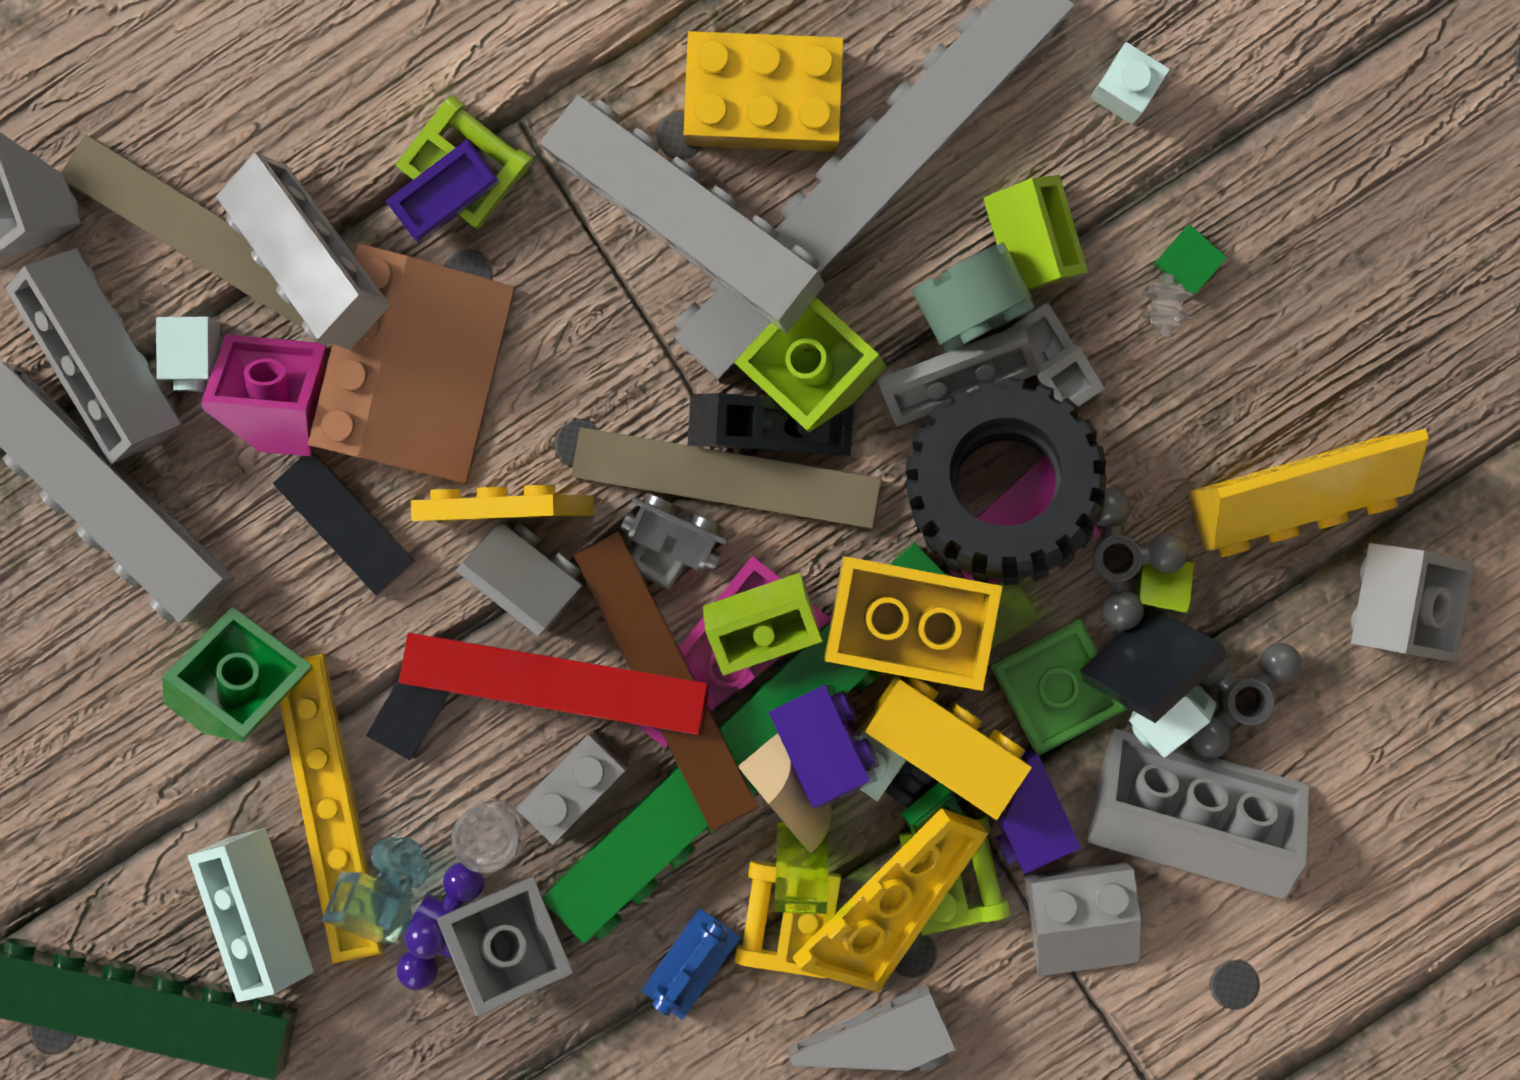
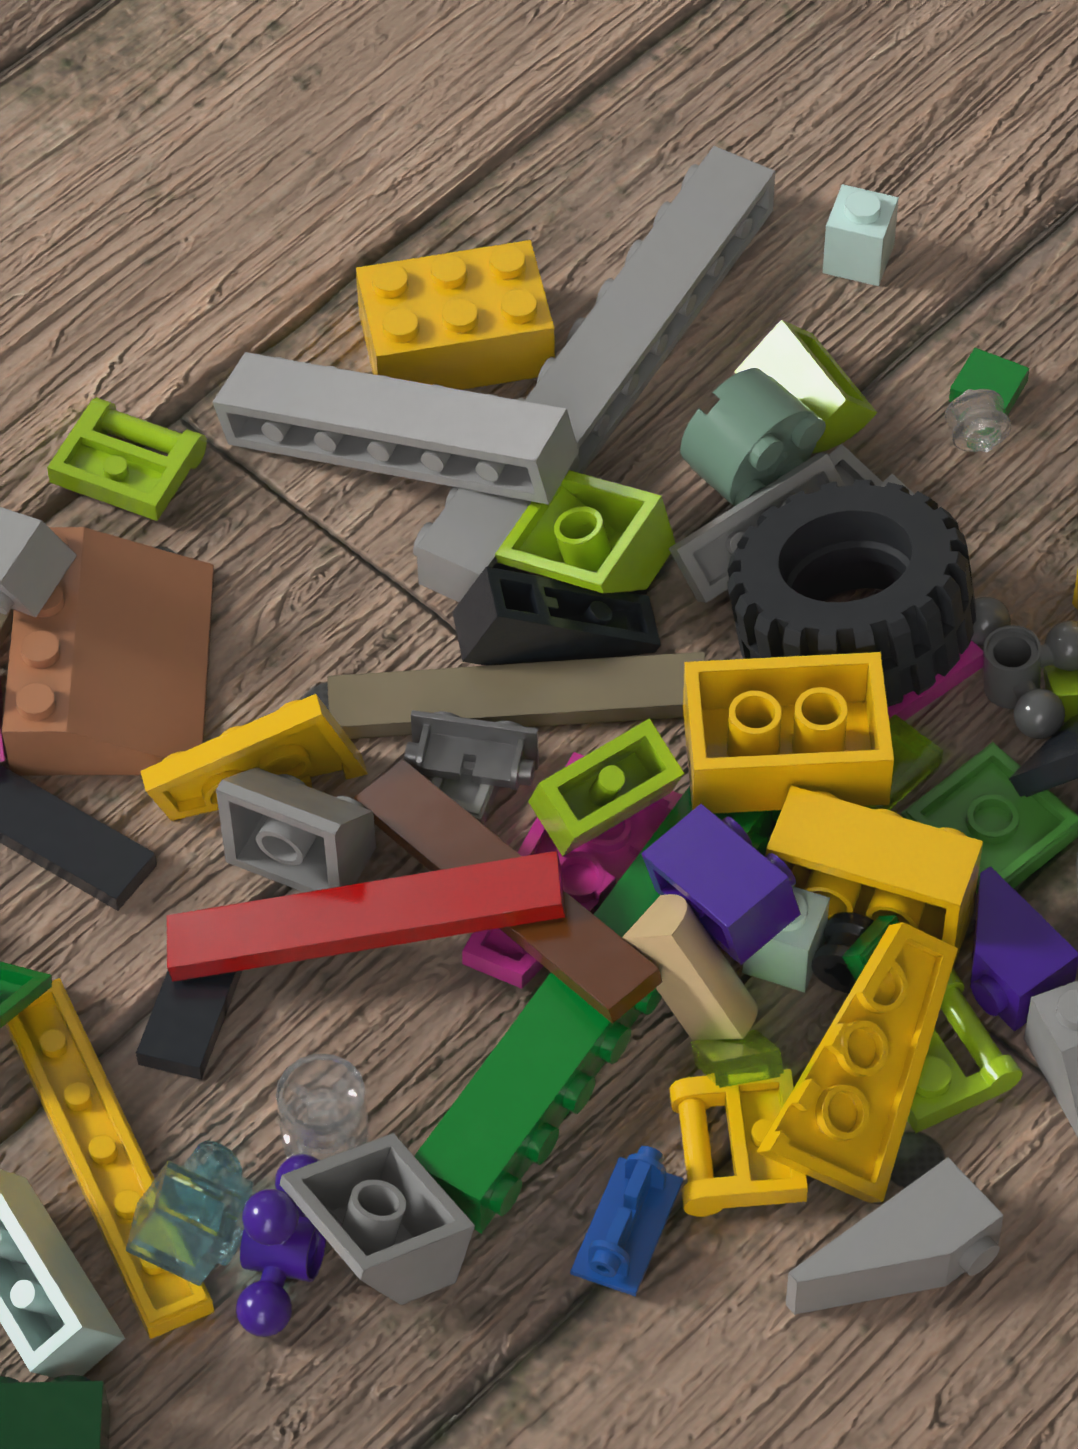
camera: 15 degrees left, 35 degrees down
(442, 191) = (110, 474): dark purple tile -> none
(572, 787) = (418, 1041): light grey brick -> none

